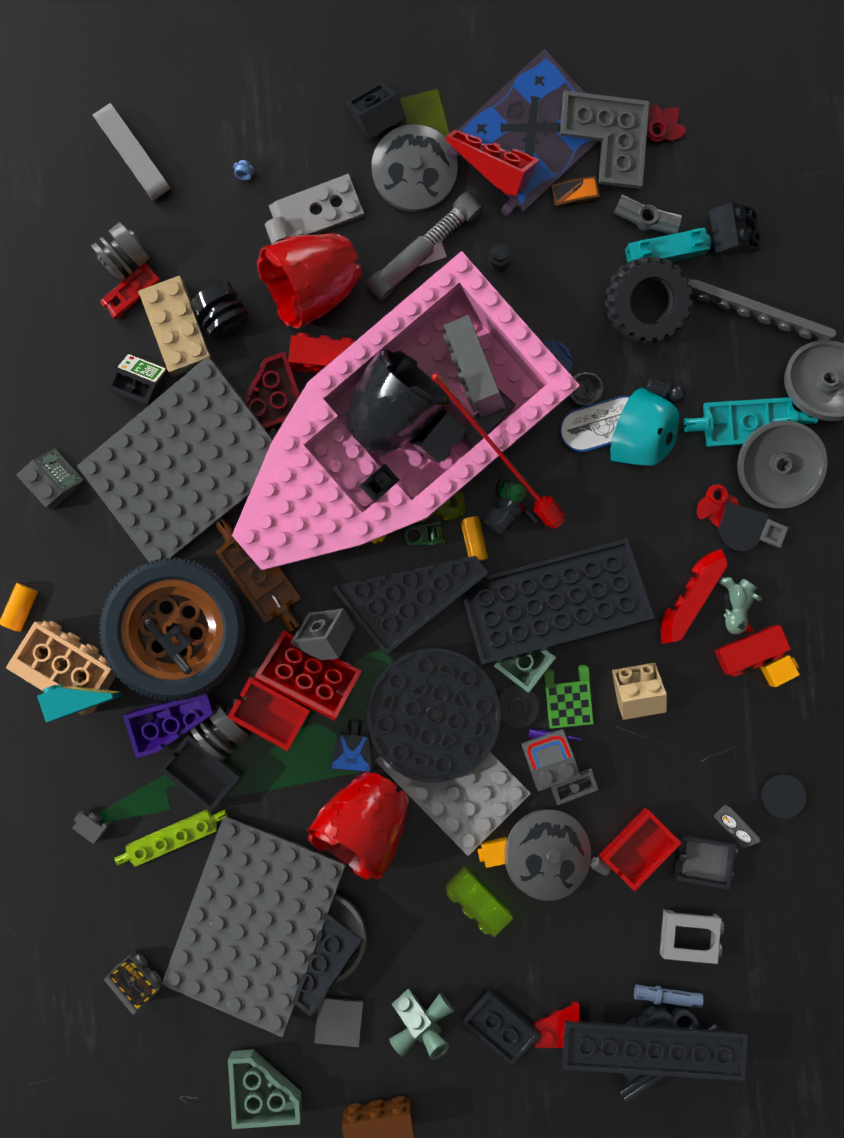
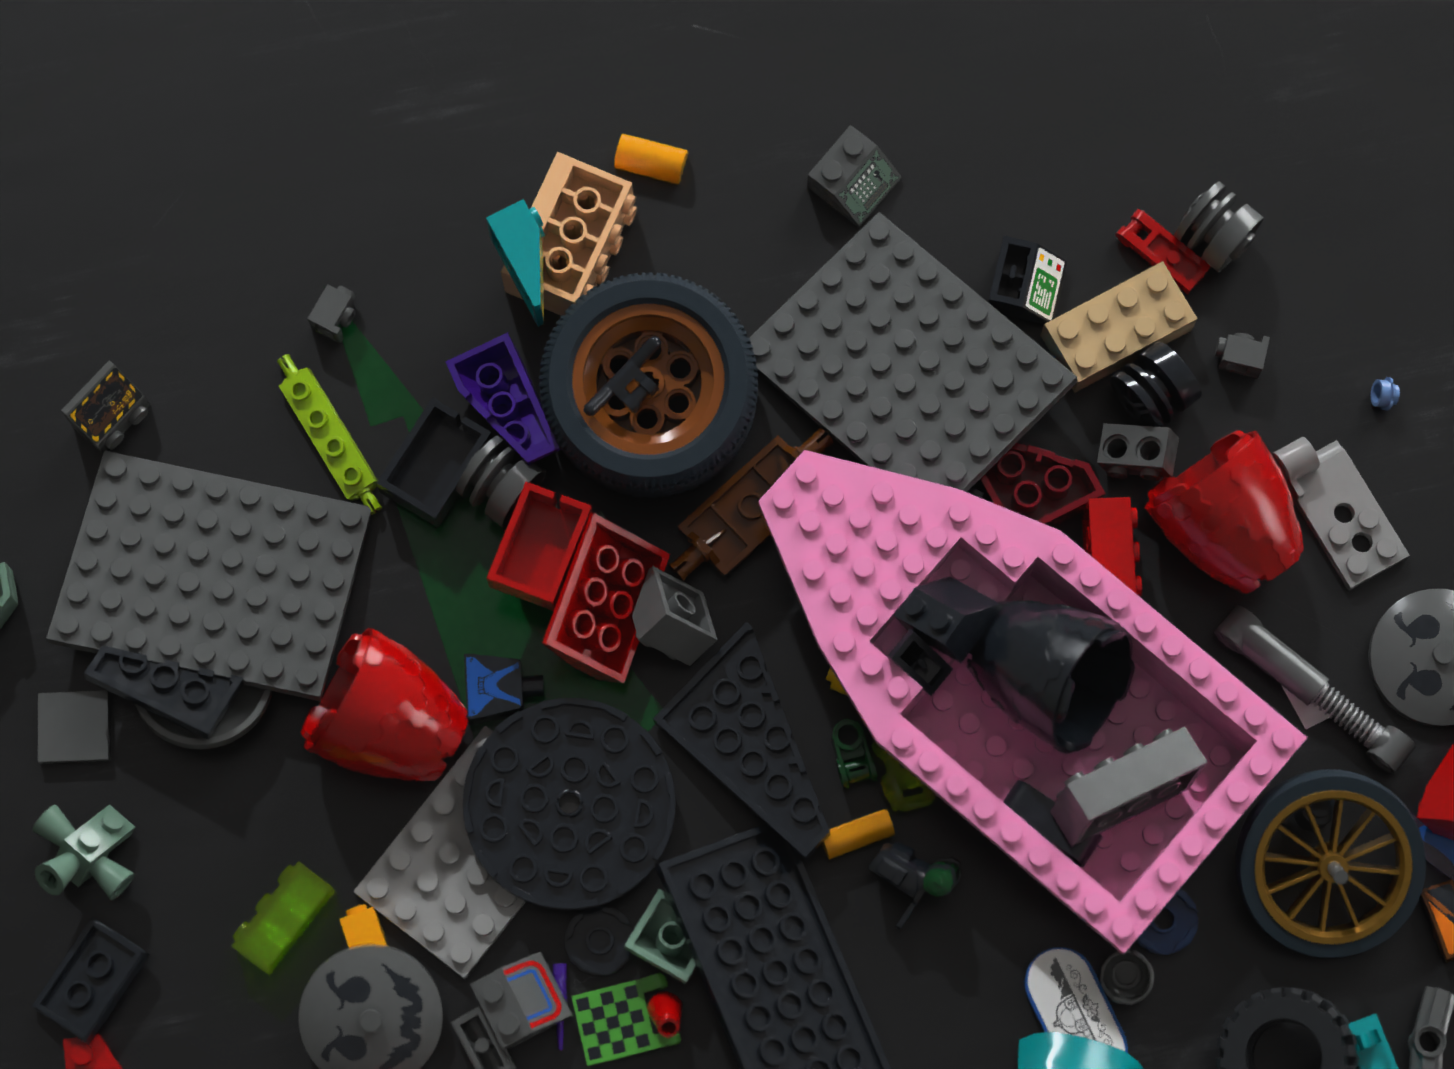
camera: 85 degrees right, 10 degrees down
(131, 151) = (1380, 221): light grey beam -> none
(205, 252) = (1242, 354): none -> dark grey brick
(254, 325) = (1139, 443): none -> dark grey brick
(352, 460) = (948, 616): none -> black slope
(439, 437) = (1008, 748): black brick -> none
(536, 253) = (1330, 863): none -> wheel
(544, 507) = (923, 932): red flag -> none
(570, 672) = (666, 1013): none -> red cone

